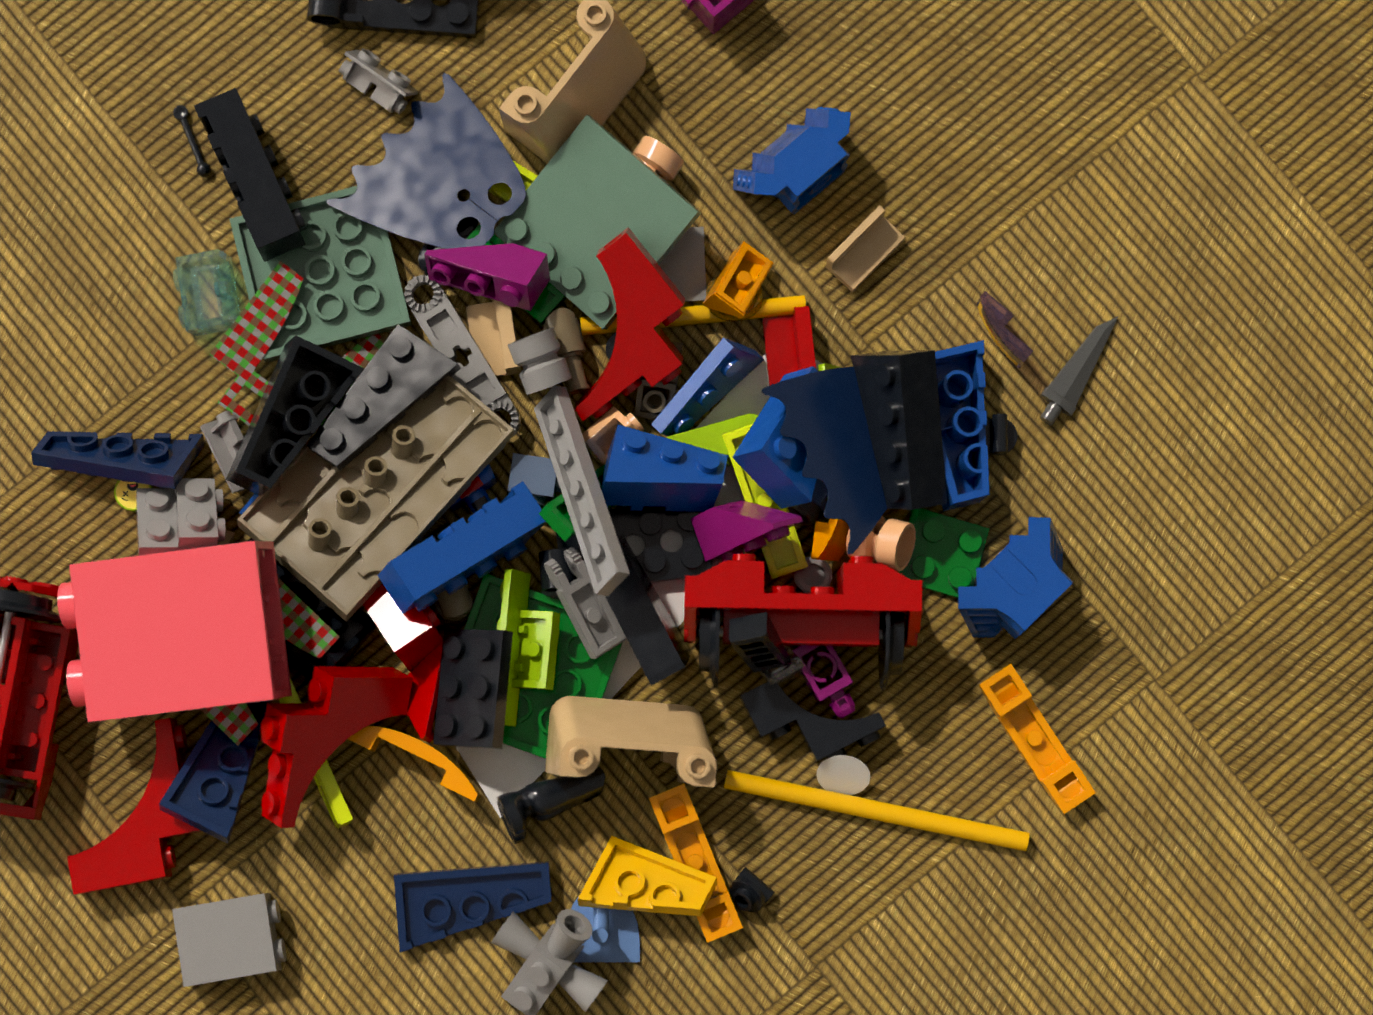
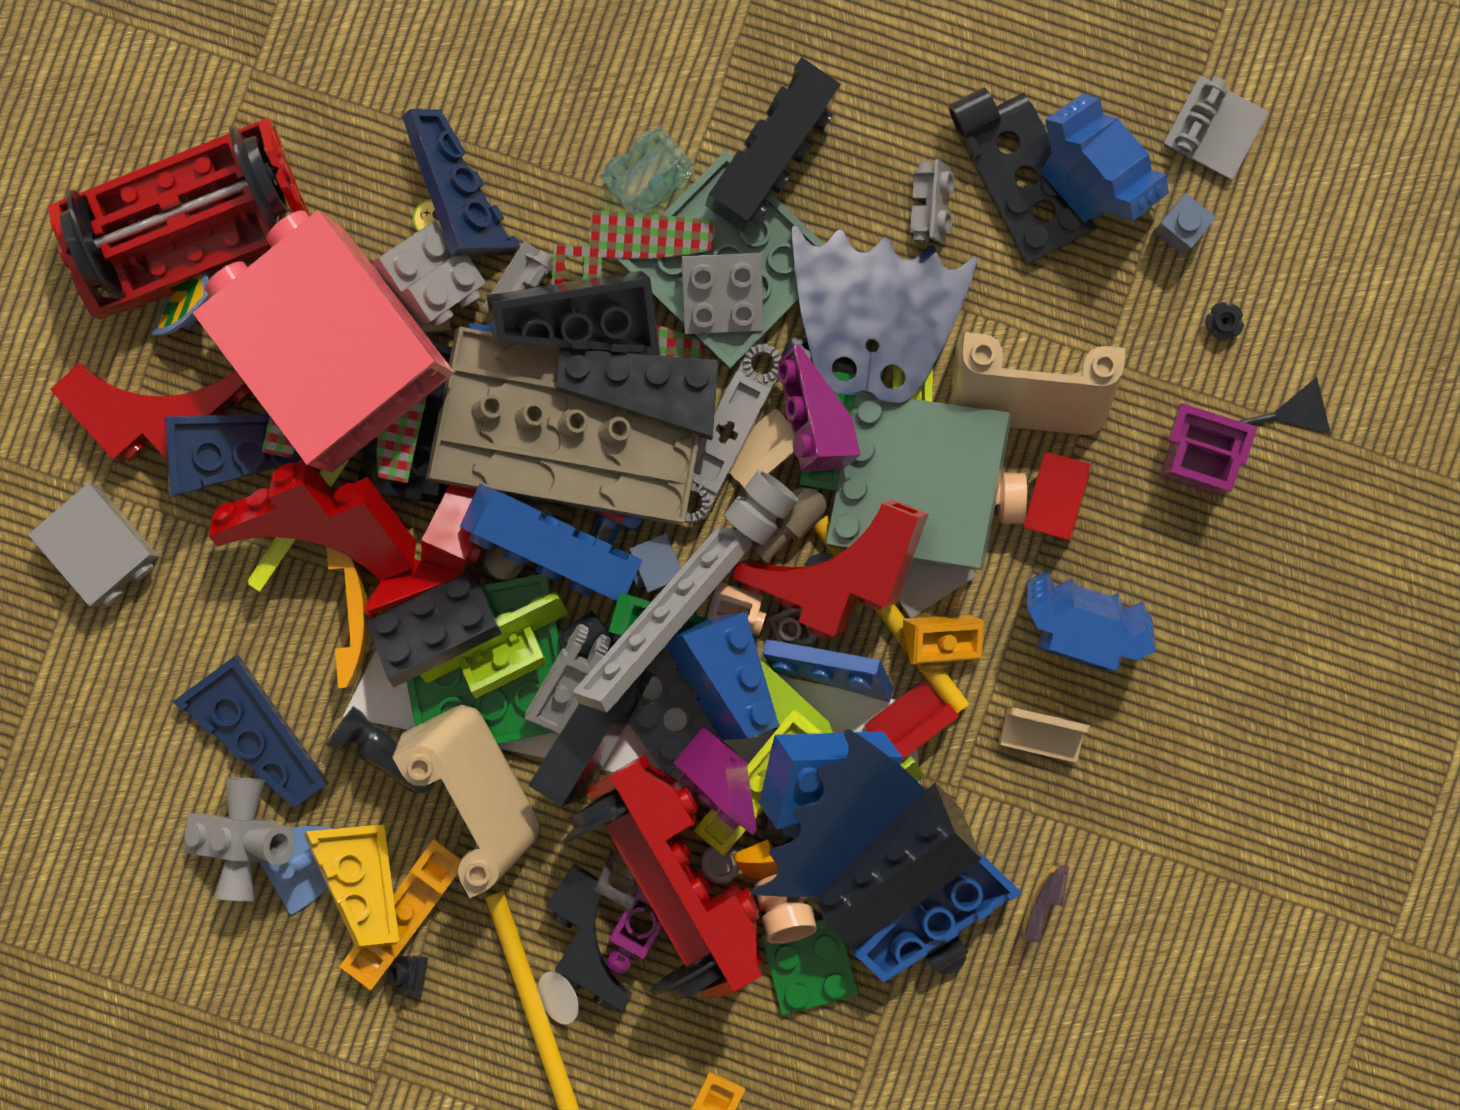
camera: 60 degrees right, 5 degrees up
(74, 740) = (179, 307): none -> shield
(182, 114) = (796, 47): black hinge -> none
(345, 289) = (722, 293): none -> light grey hinge
(679, 121) = (1058, 496): none -> red panel
(758, 642) = (621, 858): black slope -> none
(1016, 583) = (818, 1057): blue slope -> none
(1070, 382) = (1033, 989): dark grey bar -> none

